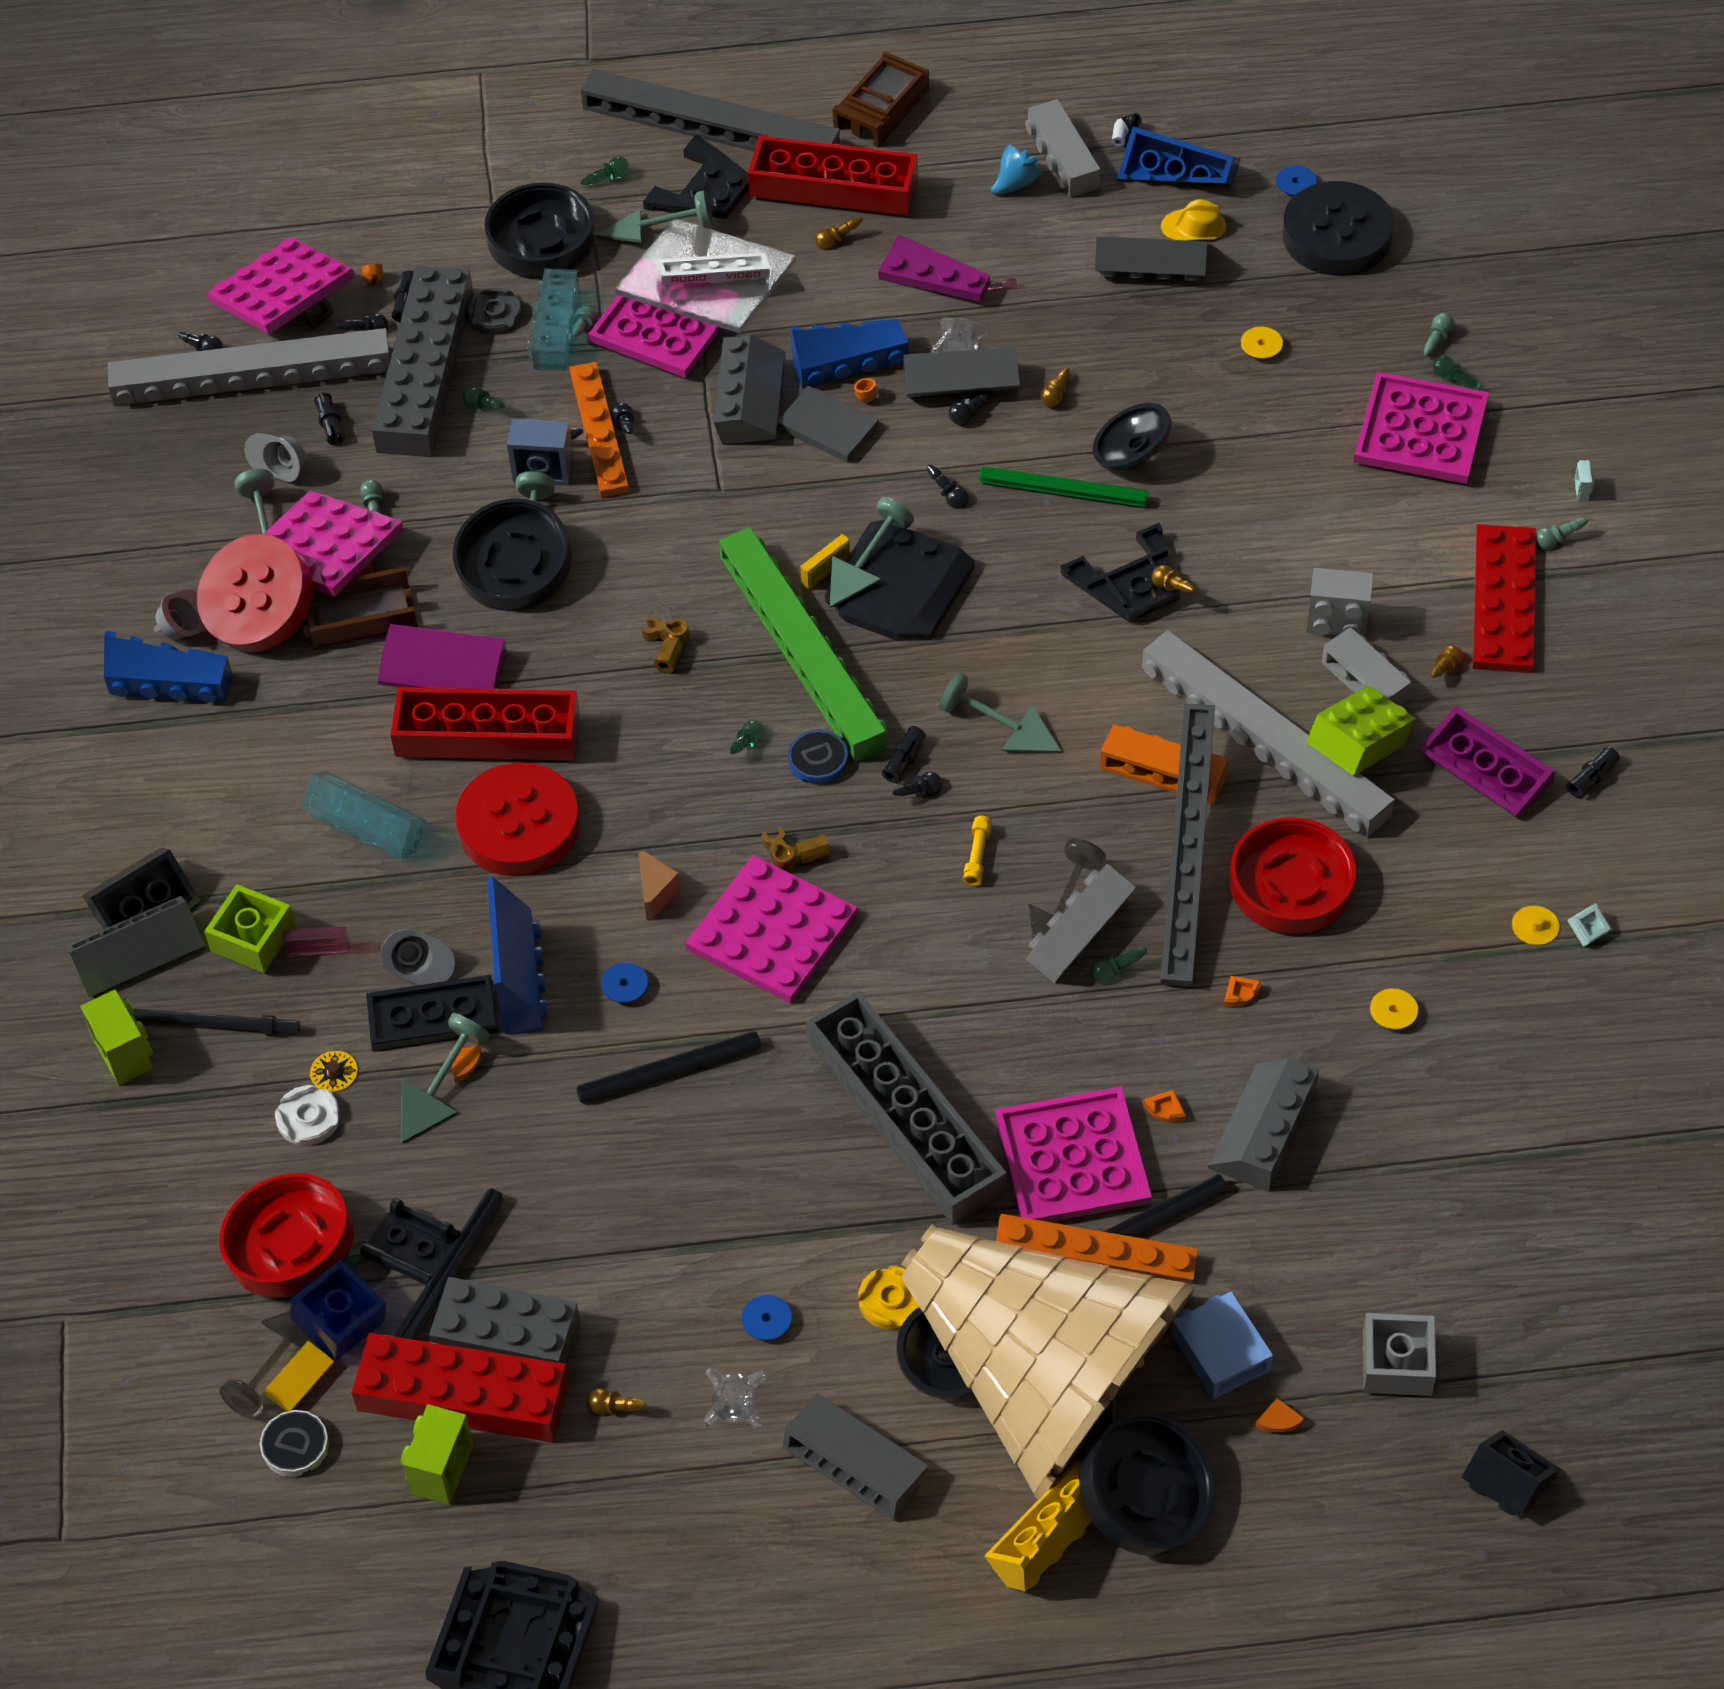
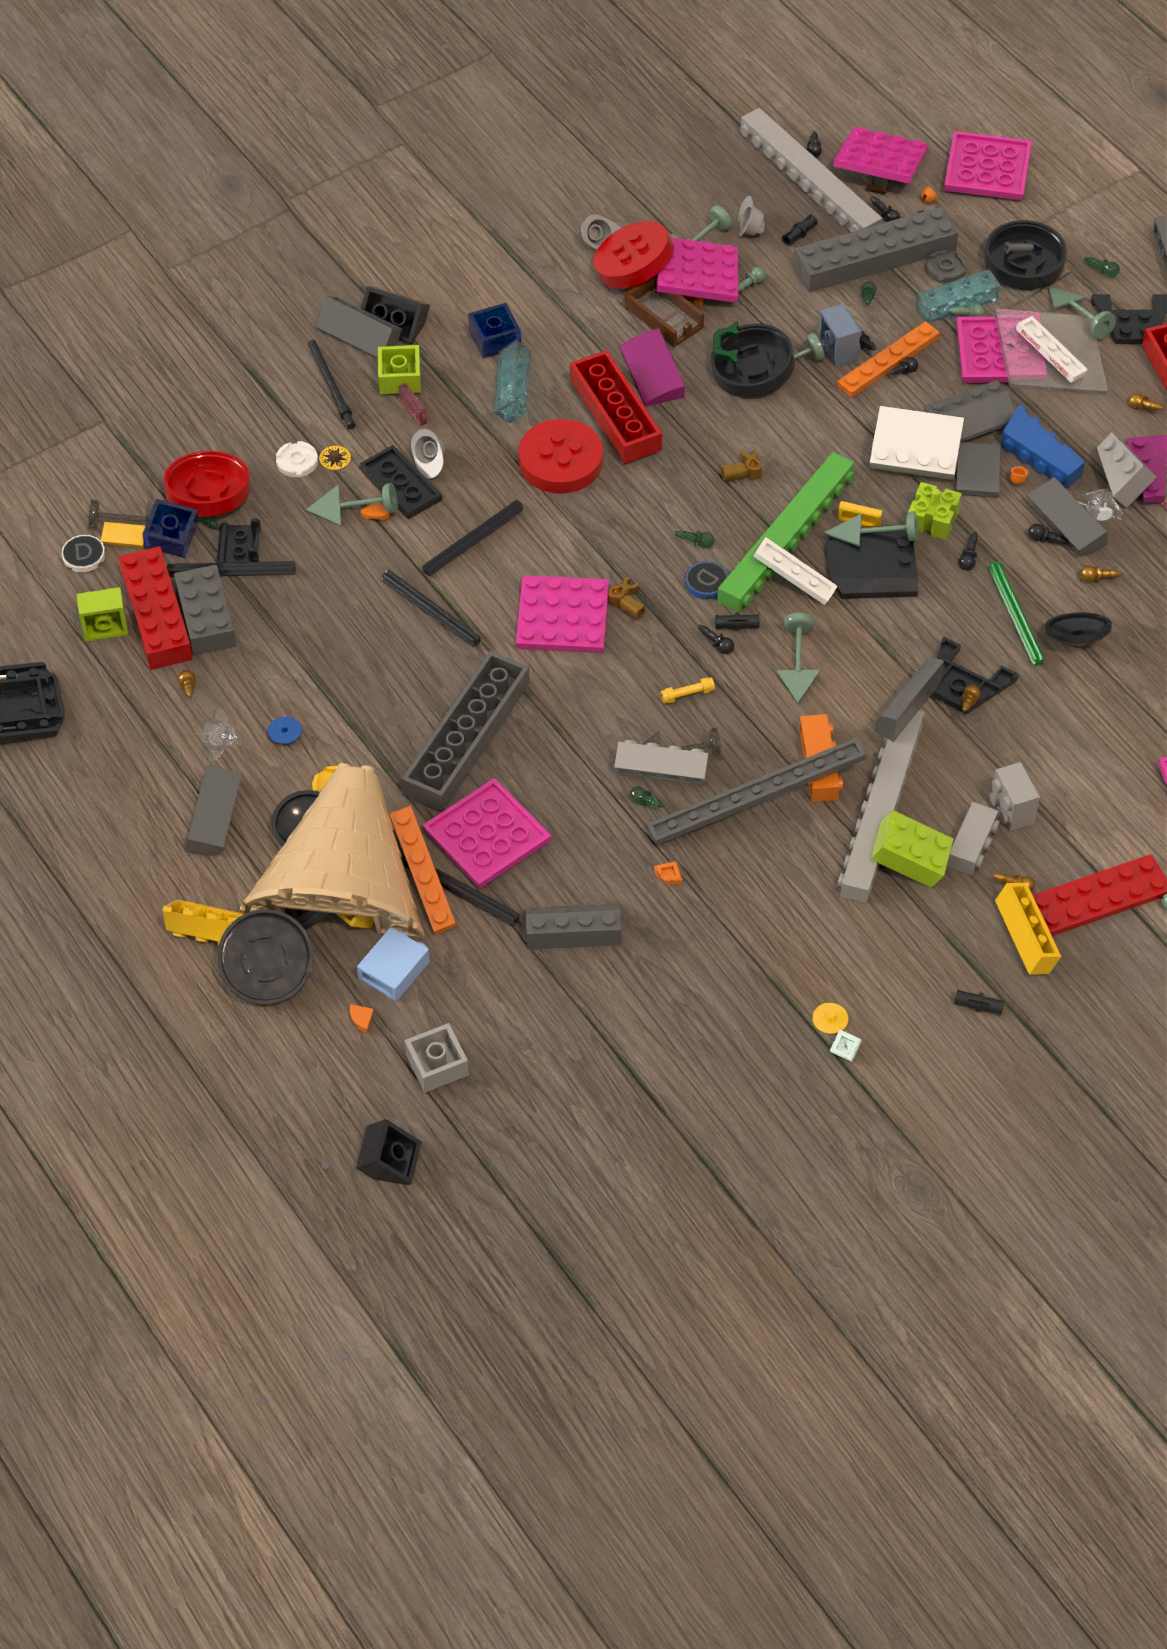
camera: 60 degrees right, 0 degrees up
(118, 1036) = (287, 346): lime brick -> none
(164, 671) = (554, 245): blue wedge -> none
(262, 795) = (493, 329): none -> clear blue brick
(370, 199) = (987, 165): none -> dark pink plate
(475, 579) = (717, 337): none -> dark green helmet
(516, 961) = (448, 492): blue slope -> none
(523, 236) = (1022, 247): none -> dark grey piece
(584, 972) = (472, 537): none -> black axle
(624, 982) = (476, 559): blue piece -> none
(658, 883) = (552, 541): medium nougat slope -> none
(762, 454) = (916, 443): none -> white slope
(864, 485) = (936, 510): none -> lime brick
(877, 658) = (795, 571): none -> white plate
(931, 288) = (1124, 470): none -> light grey wedge
(1153, 629) = (910, 699): none -> dark grey brick
(1165, 1107) = (556, 868): orange tile -> none
(1292, 875) = (774, 861): red piece -> none
(1394, 1009) = (706, 960): yellow piece -> none
(1487, 762) = (944, 937): magenta slope -> none
(1525, 677) = (1027, 928): none -> yellow brick

